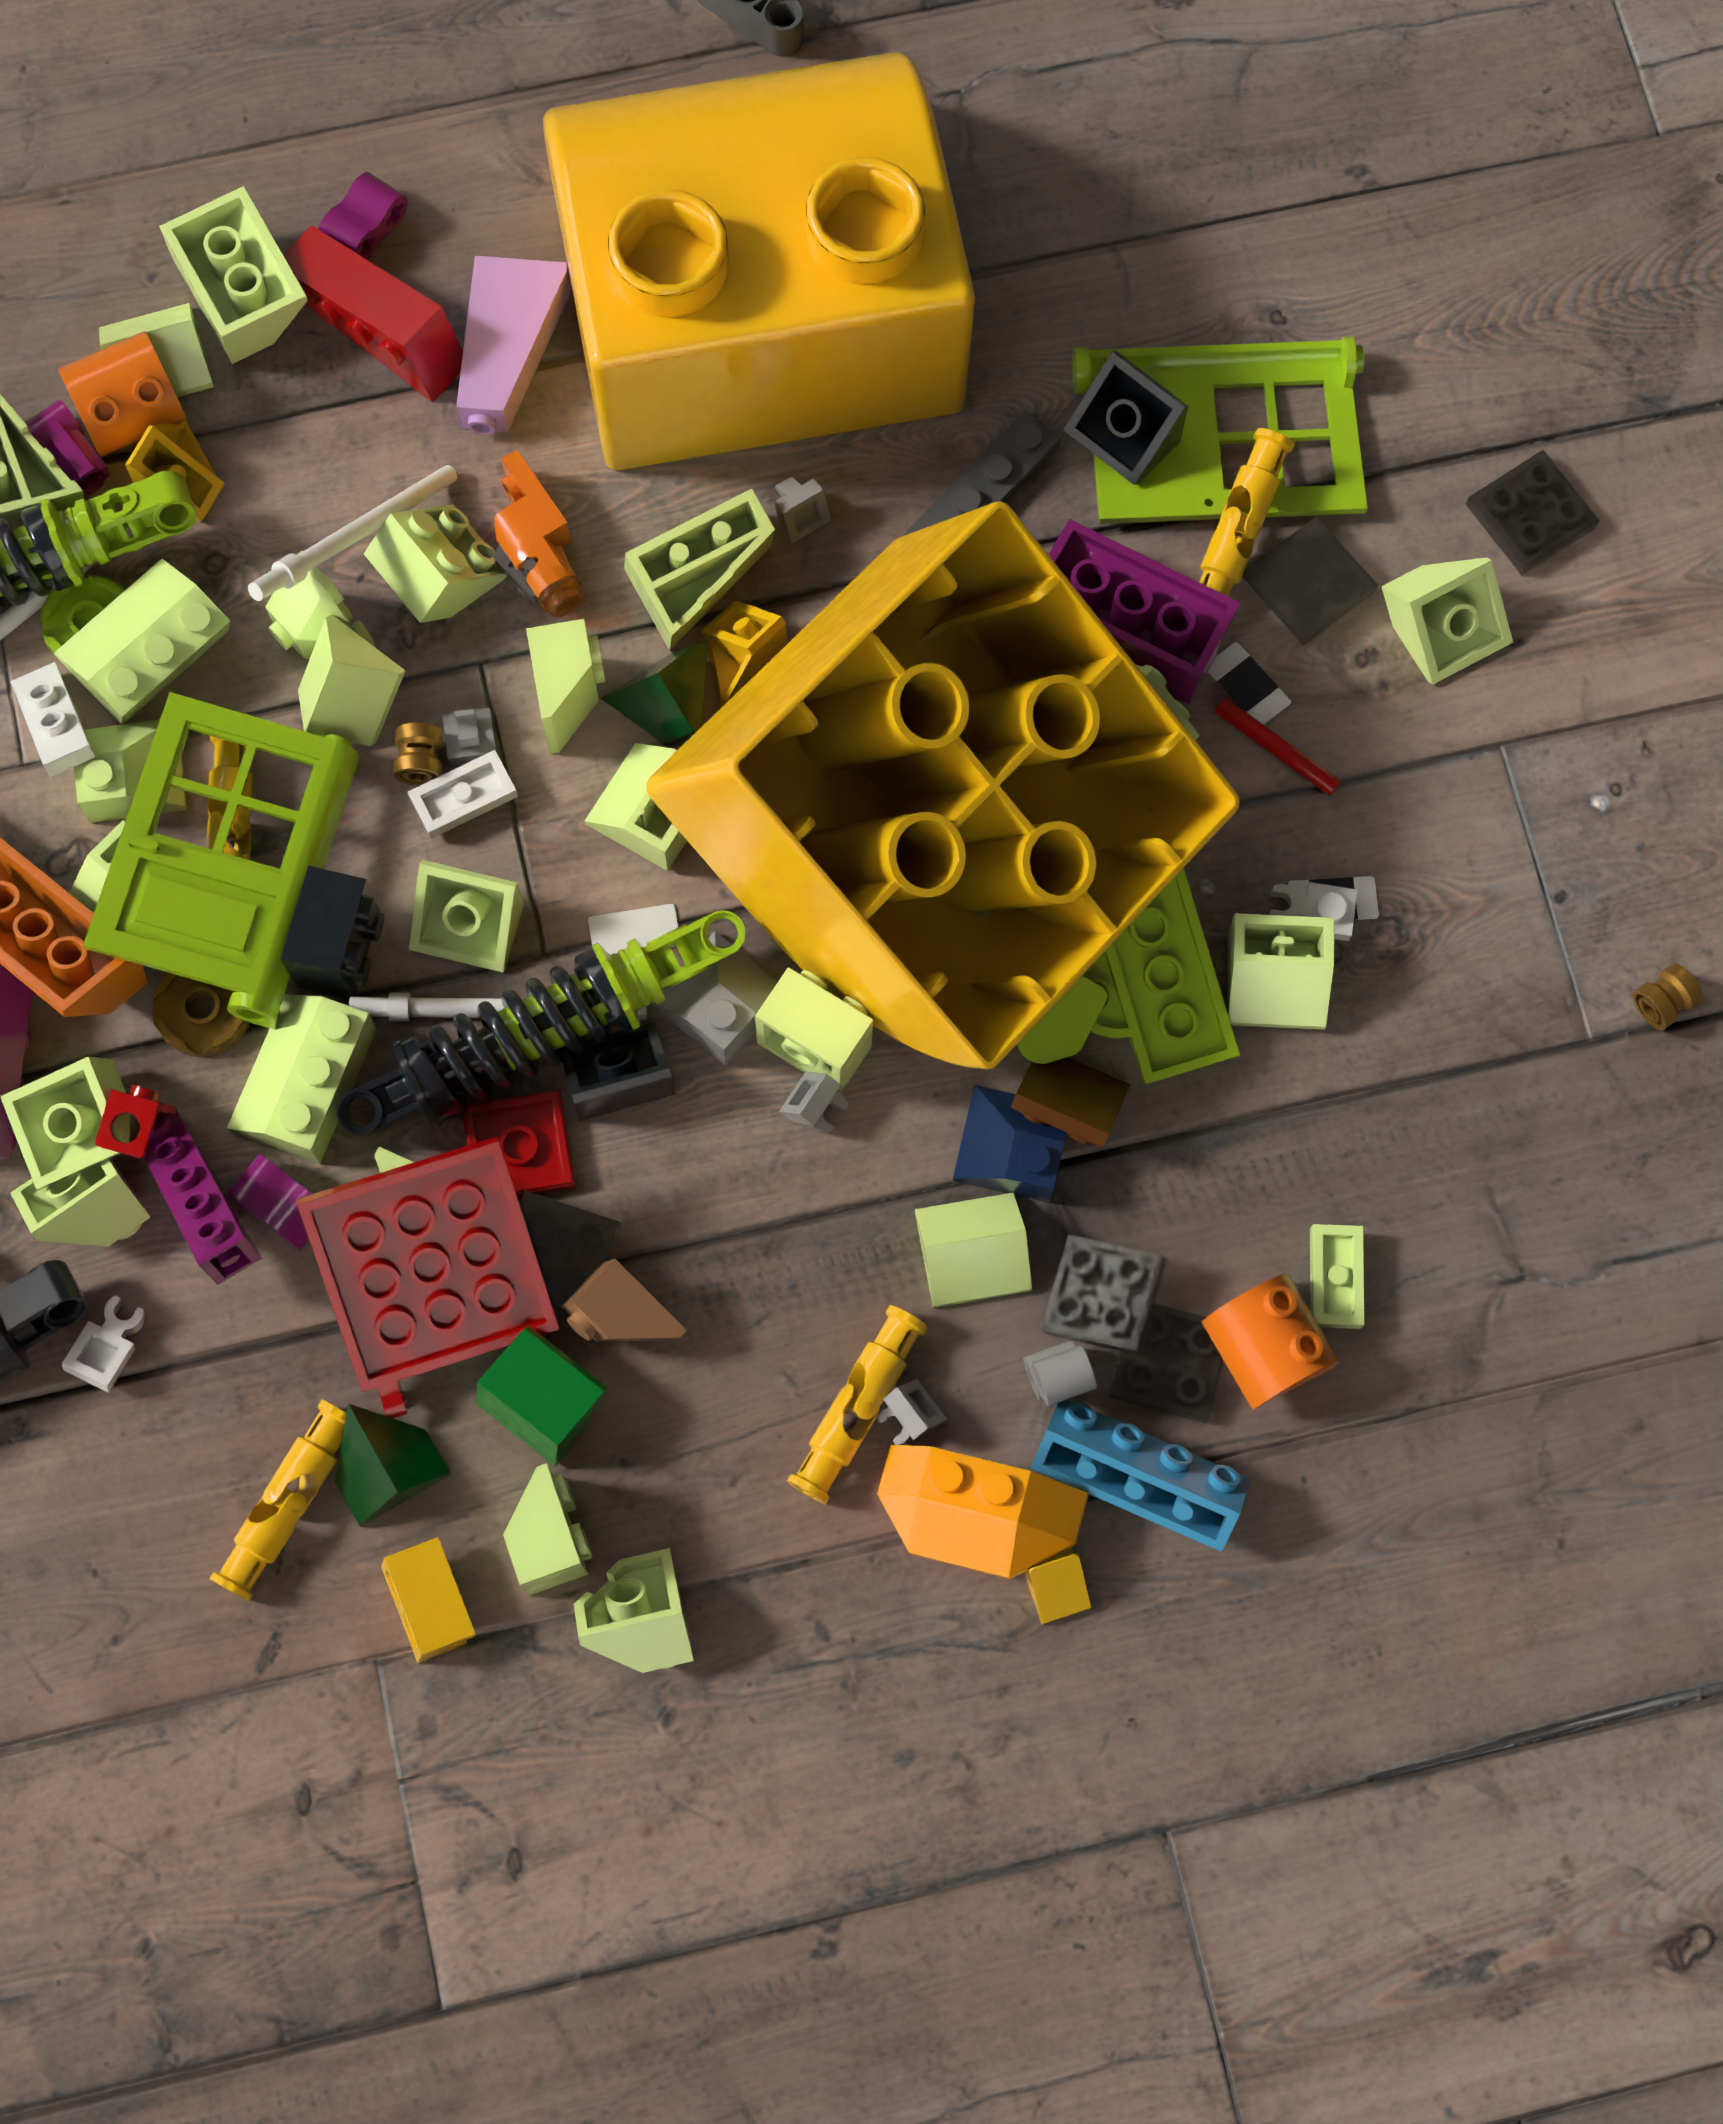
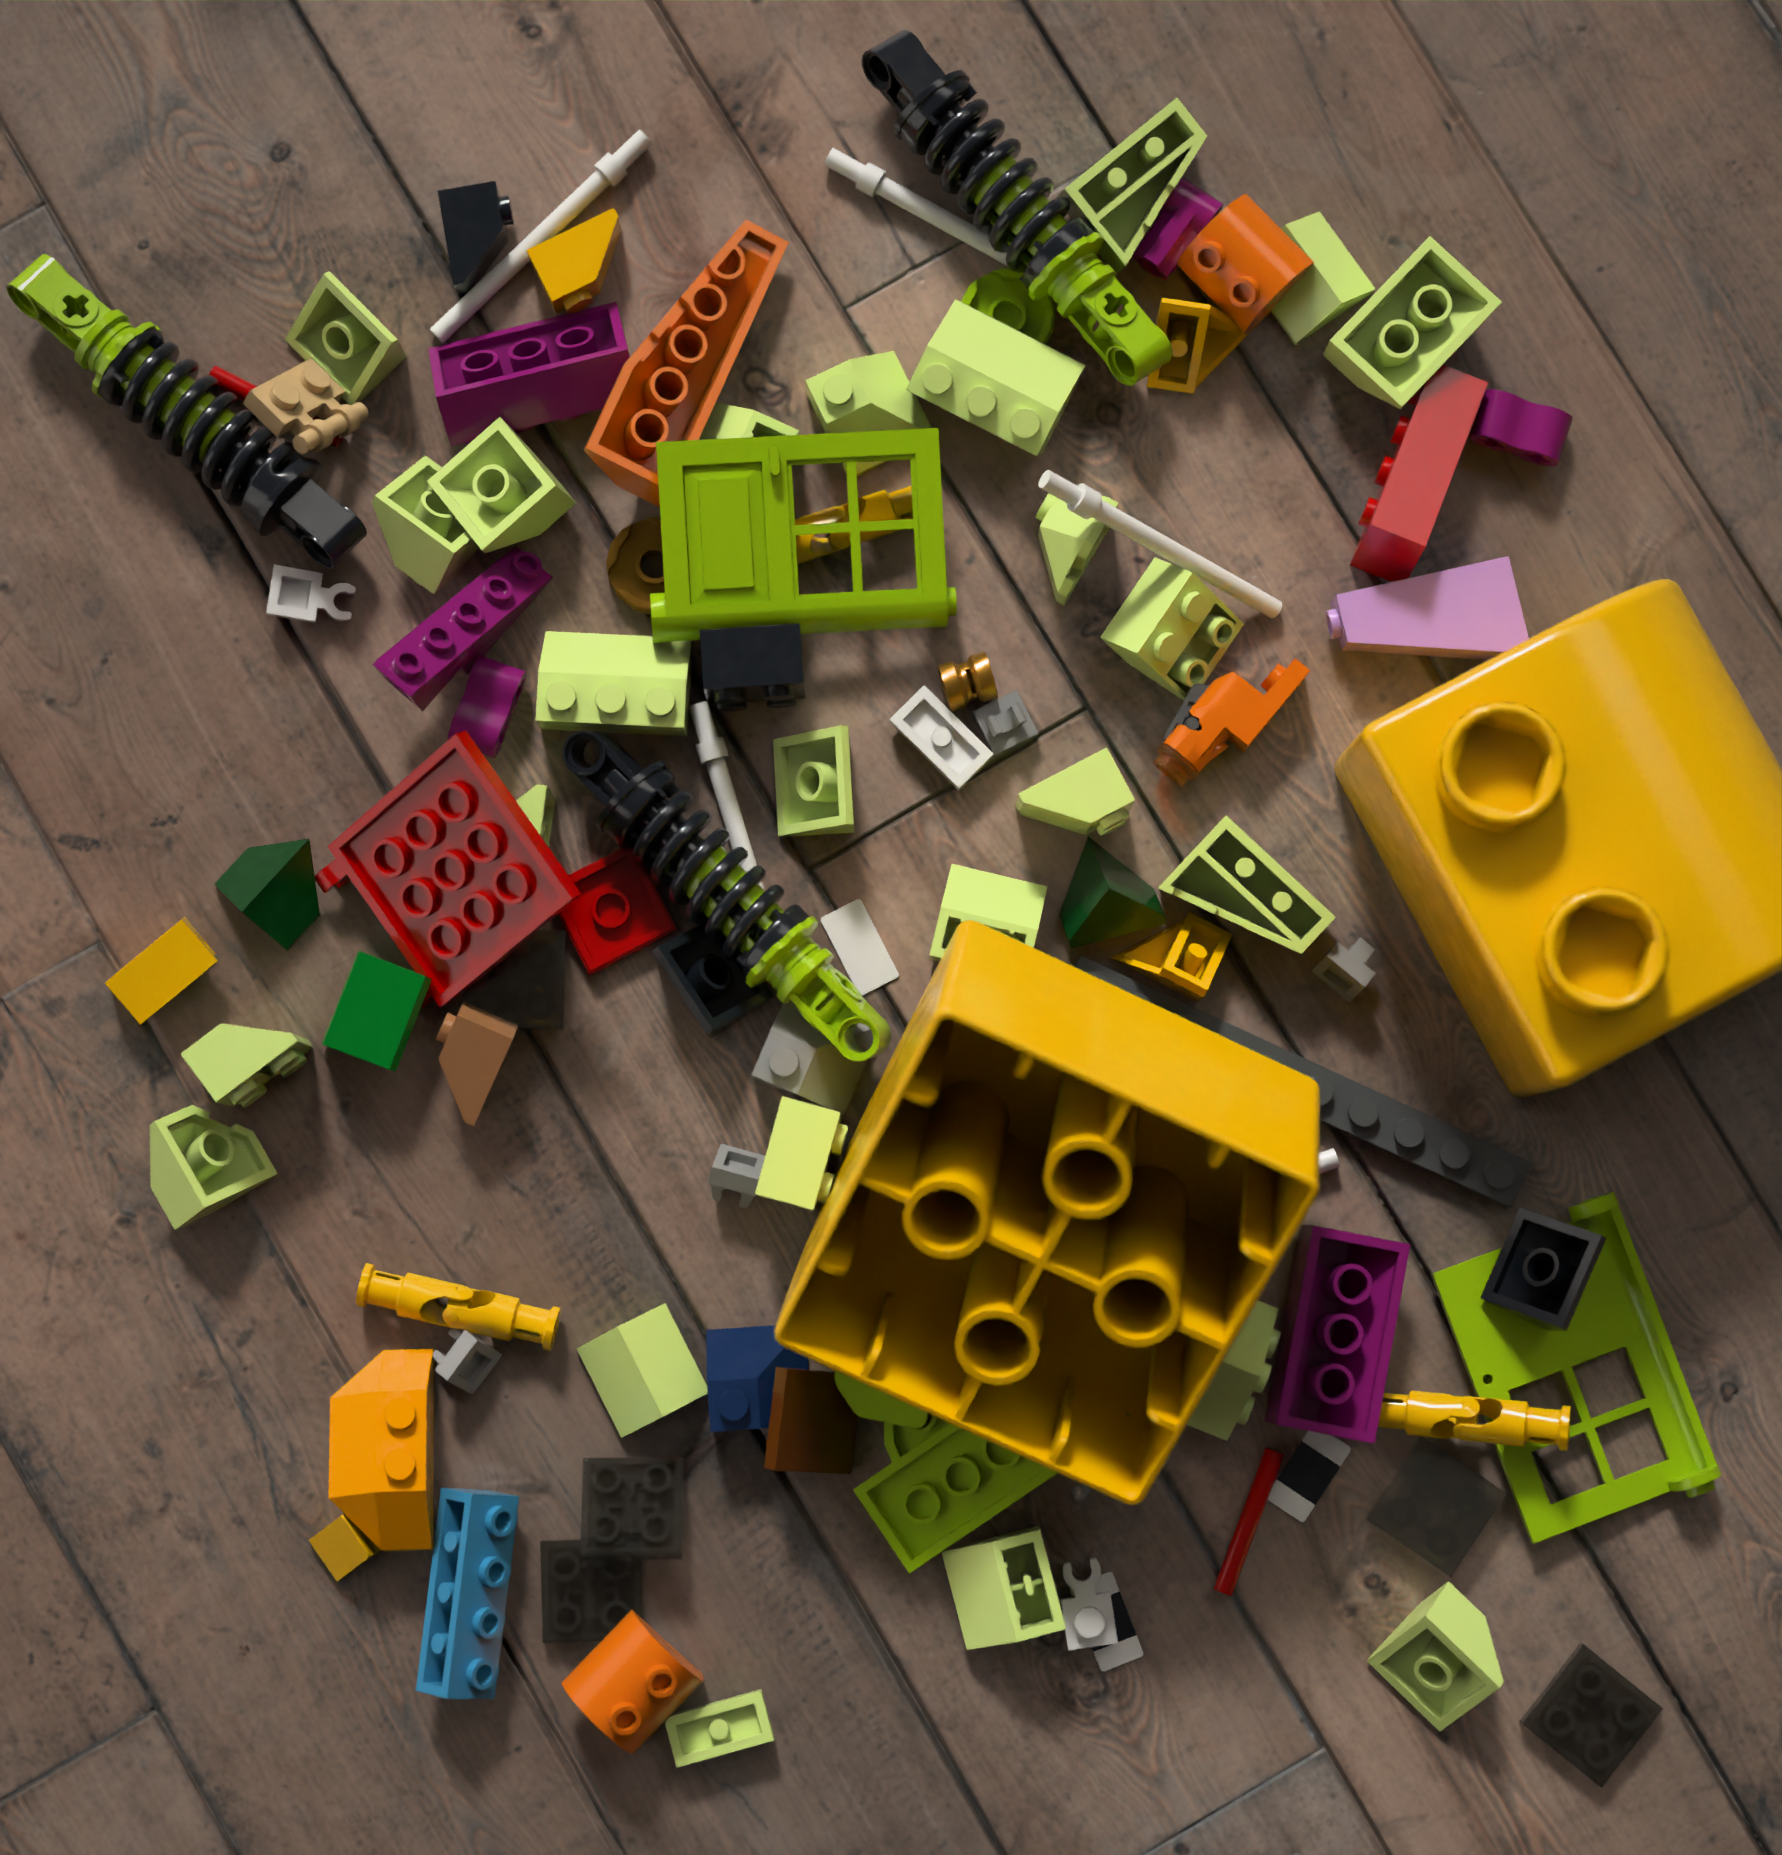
camera: 75 degrees right, 10 degrees up
(52, 719) = (886, 323): white plate -> none
(144, 1105) = (531, 548): red bracket -> none
(279, 1508) = (178, 801): yellow piece -> none
(347, 686) = (1007, 589): yellowish green slope -> none
(1059, 1372) = (538, 1488): light grey axle -> none

